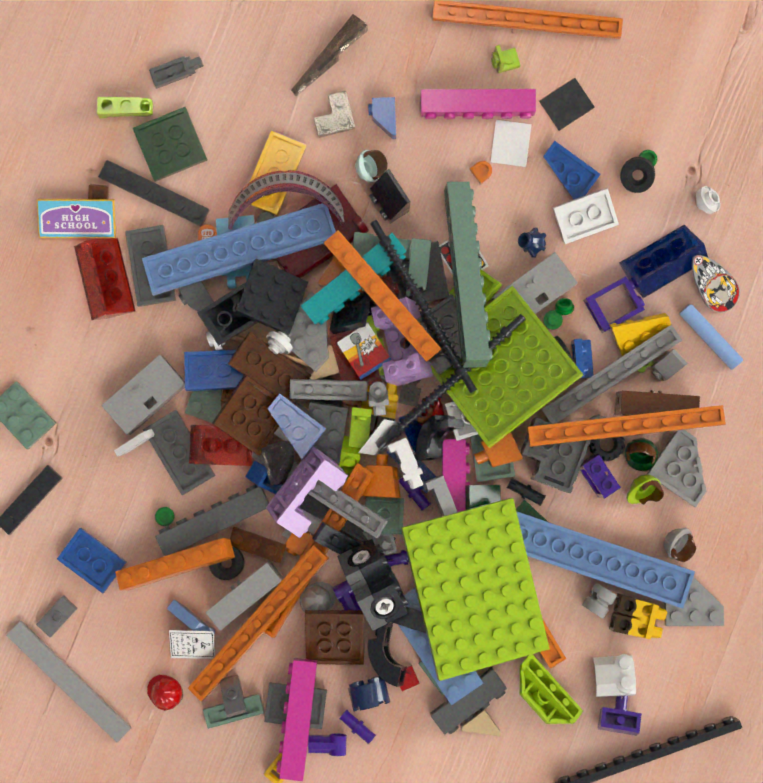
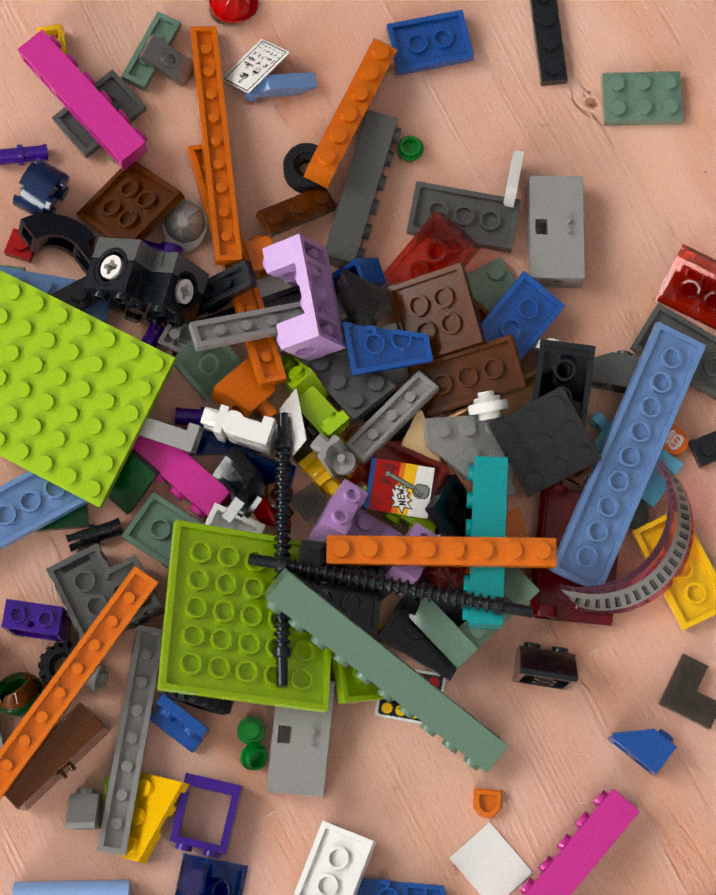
camera: 130 degrees right, 10 degrees down
(244, 595) = (255, 153): light grey brick -> none
(333, 744) = (26, 116): dark purple piece -> none
(371, 165) = (599, 679): piece -> none
(501, 453) = (156, 538): orange torso -> none
(532, 242) = (357, 784): dark blue rock -> none

